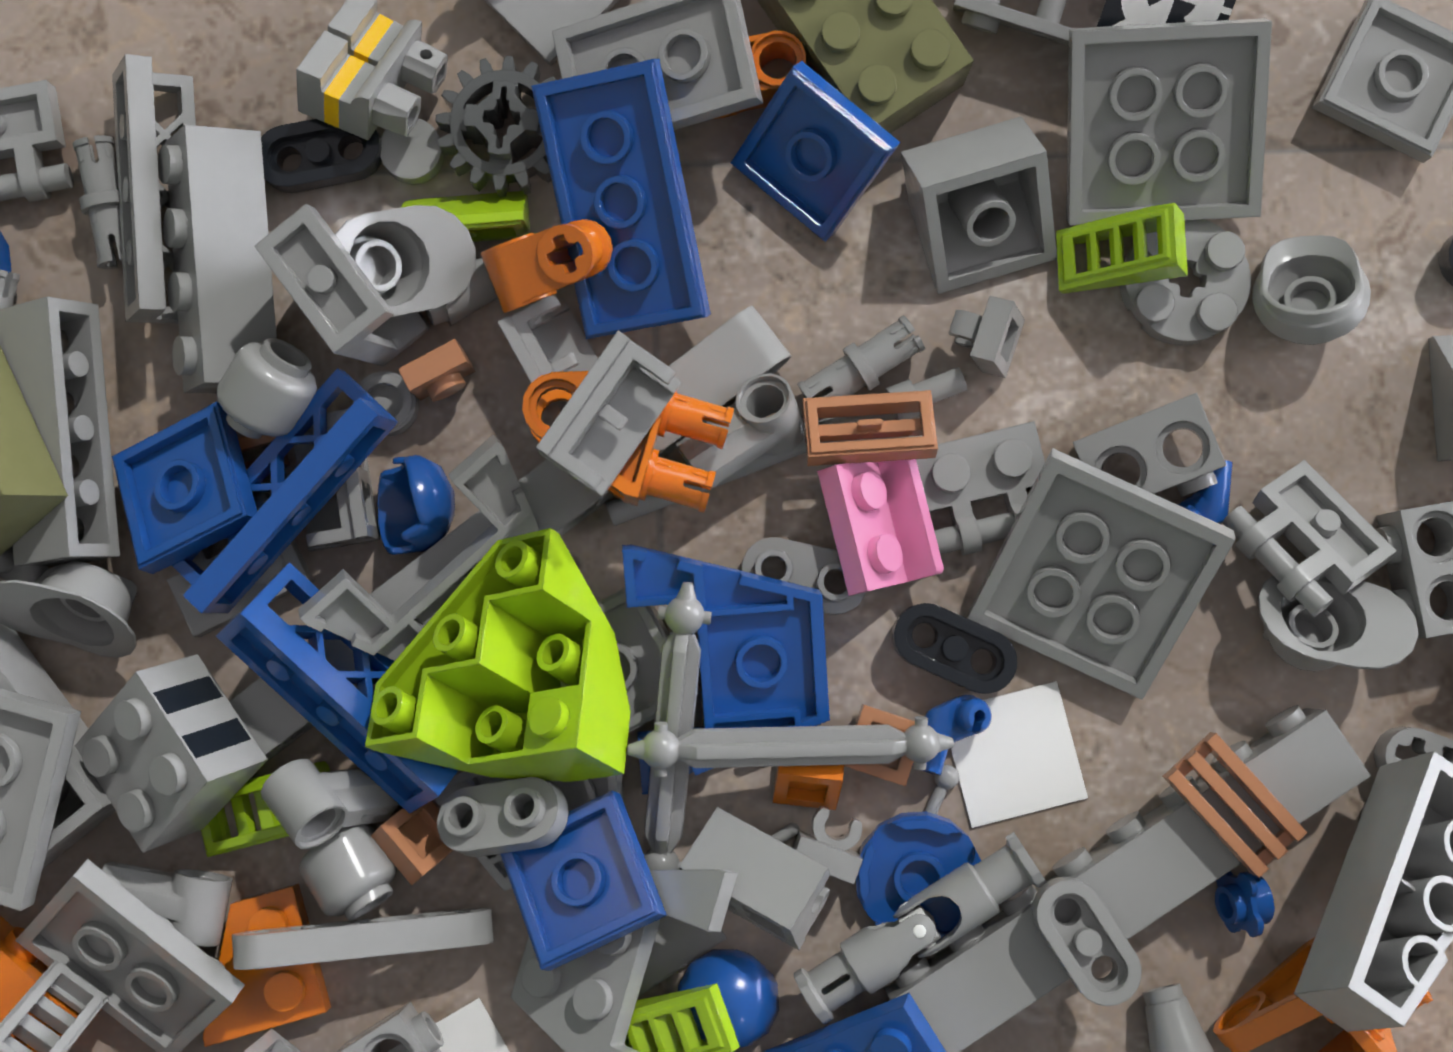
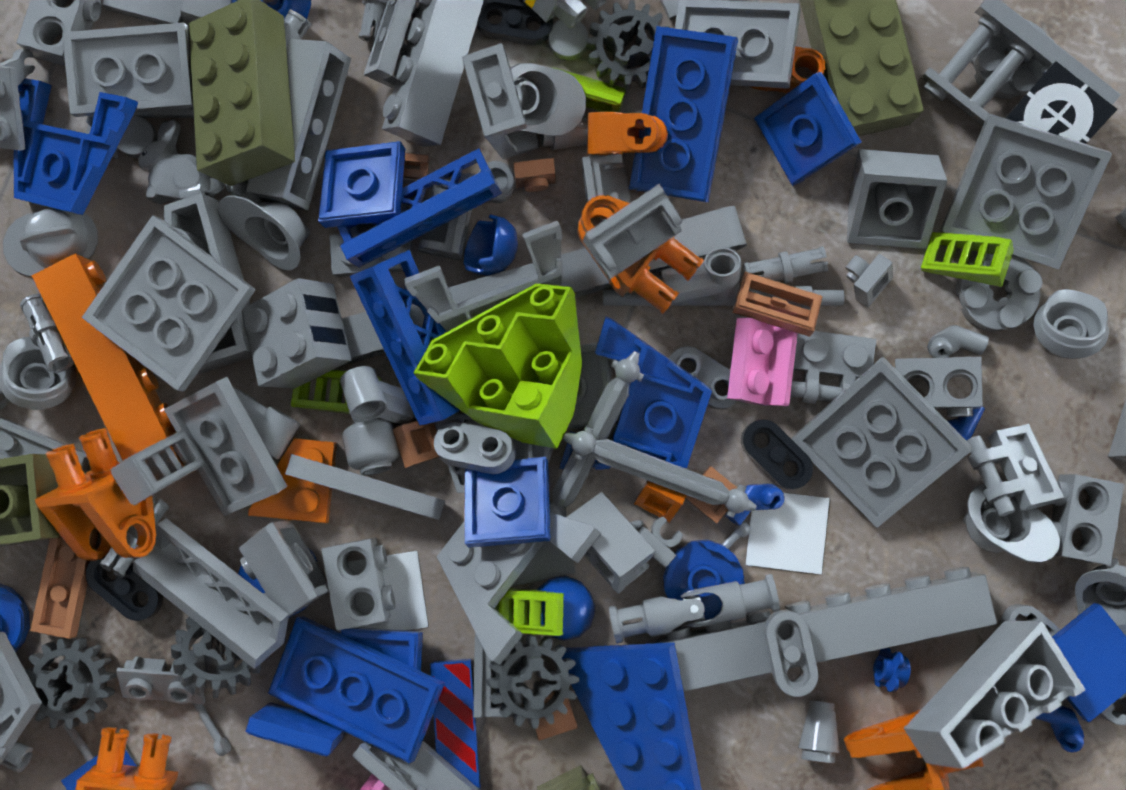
camera: 20 degrees right, 0 degrees up
(266, 388) = (433, 144): light grey head -> none
(1148, 375) = (955, 338): none -> light grey arm
(1273, 845) = (923, 641): nougat tile -> none

